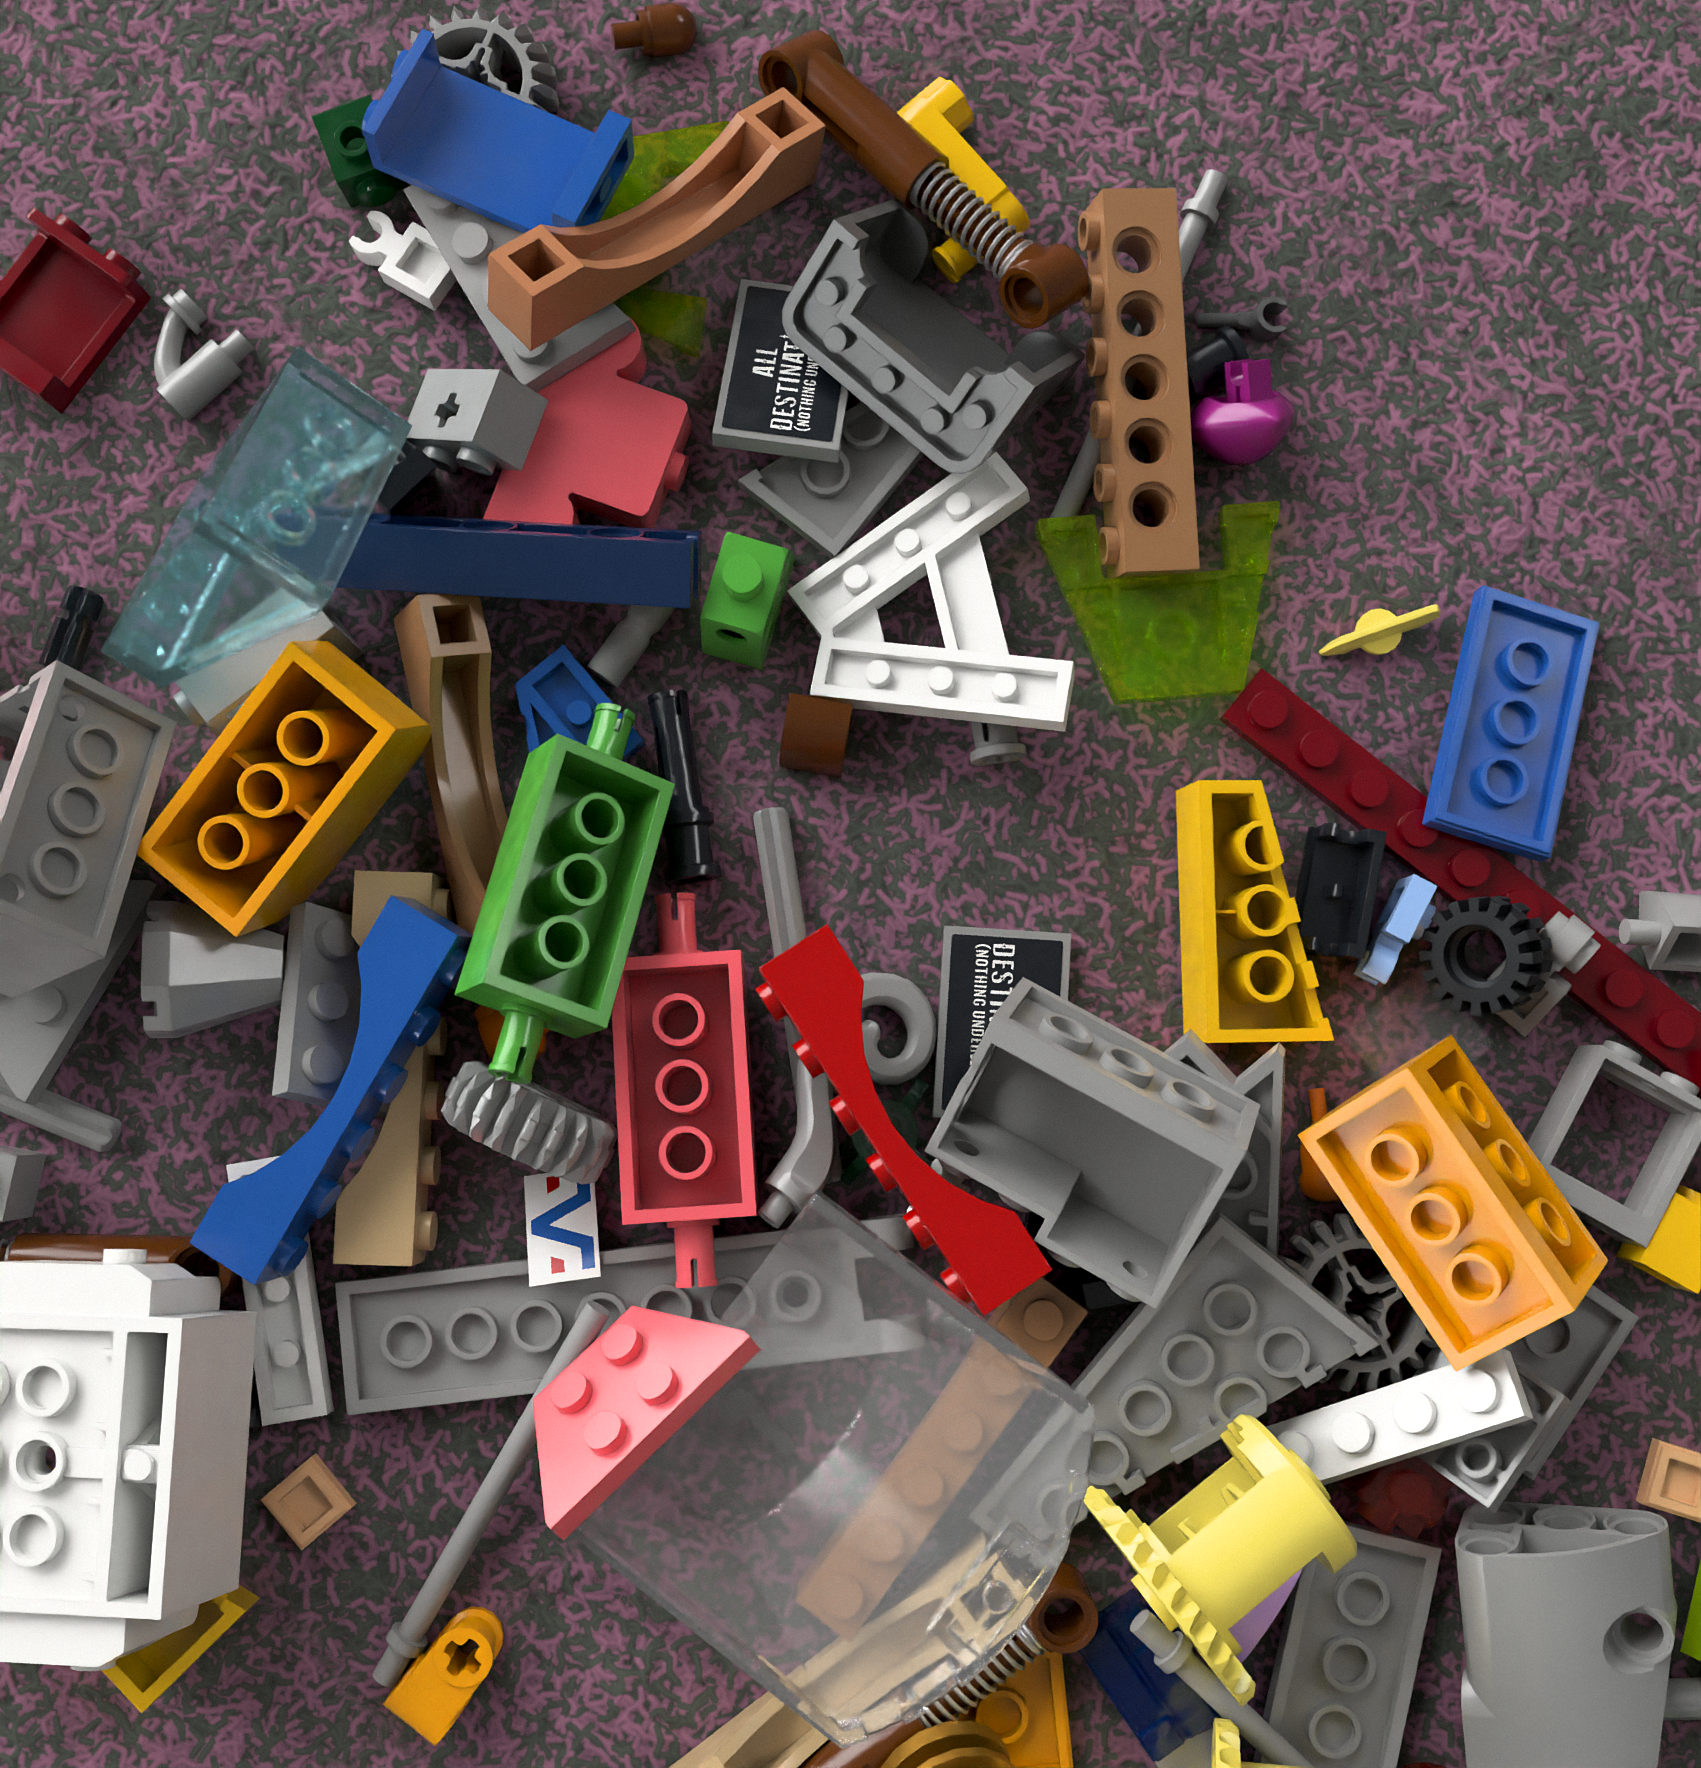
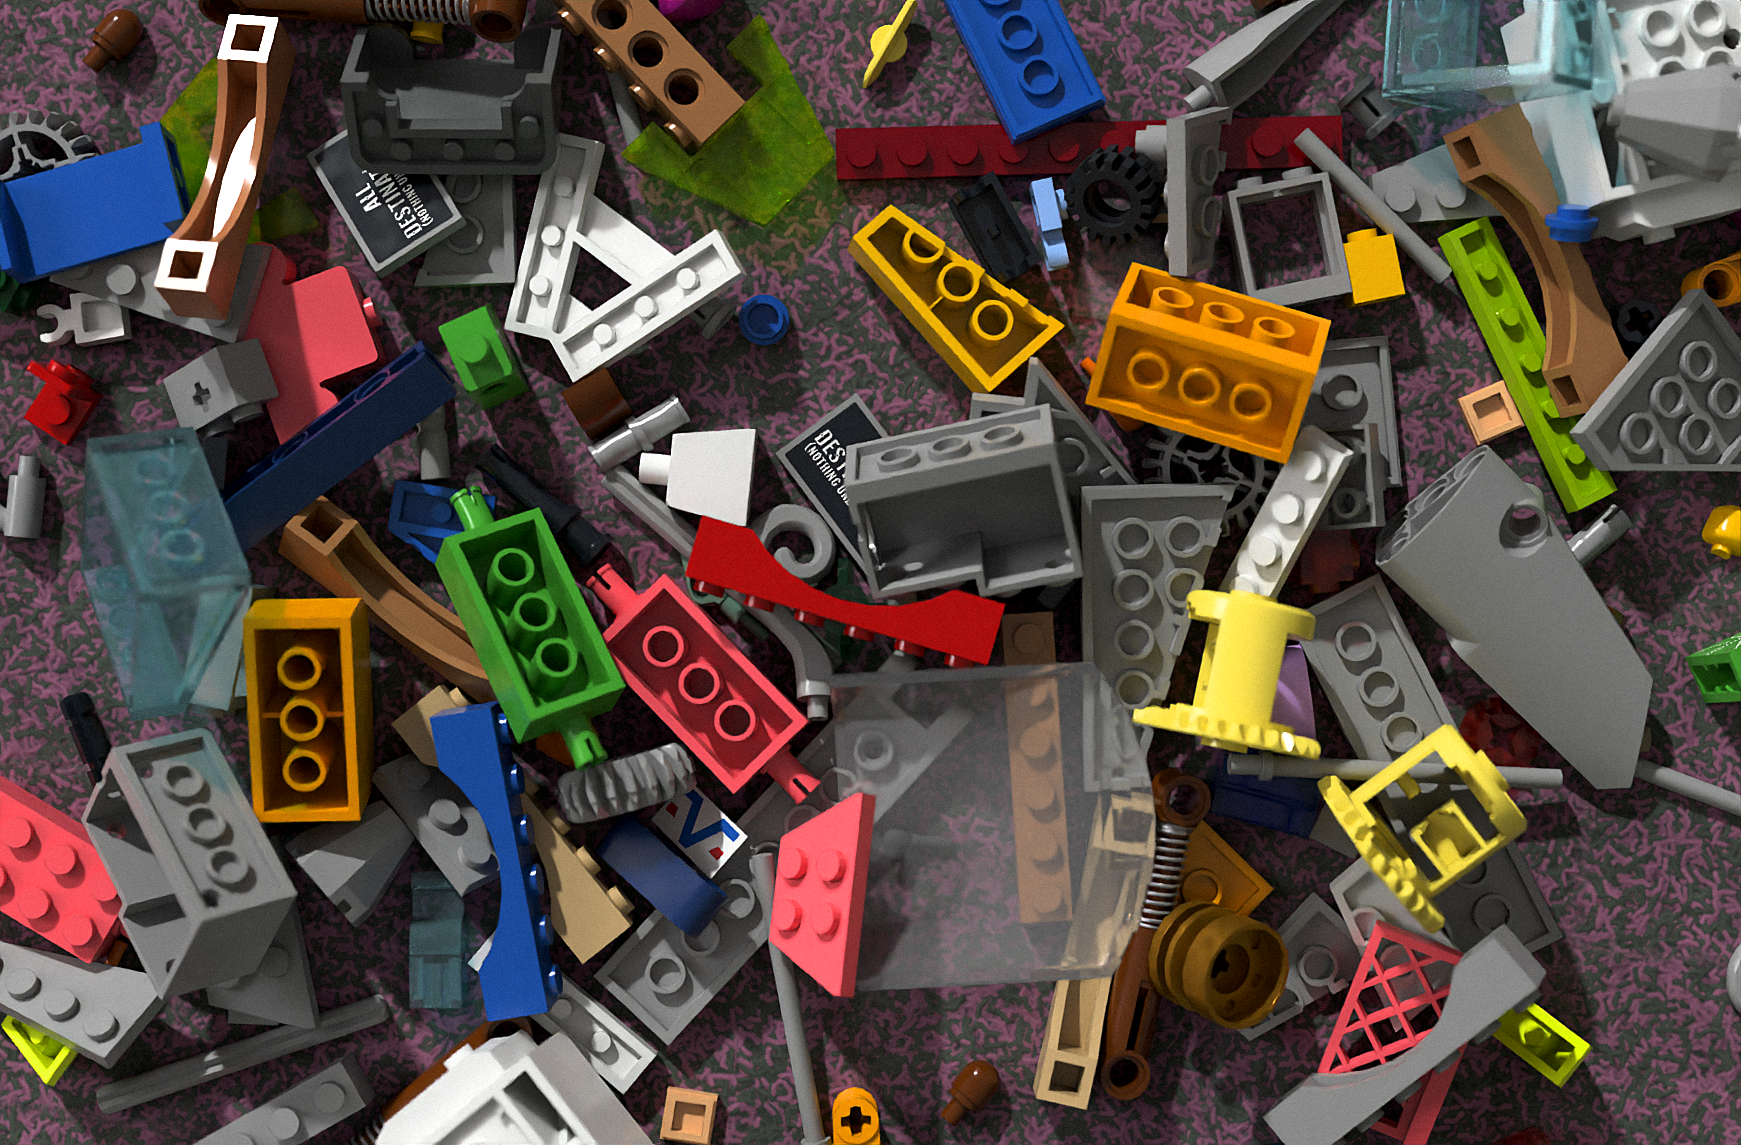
camera: 40 degrees left, 5 degrees up
(212, 1122) = (437, 943): none -> clear light blue piece
(324, 314) = (63, 401): none -> red bracket
(485, 1244) = (662, 874): none -> dark blue beam
(604, 1720) = (971, 1090): none -> reddish brown cylinder
(774, 1034) = (728, 606): none -> sand green hand
(830, 797) = (639, 434): none -> light grey pin
(862, 888) = (706, 473): none -> white torso
(1040, 790) = (763, 320): none -> blue plate
(1587, 996) = (1192, 168): none -> light grey wing

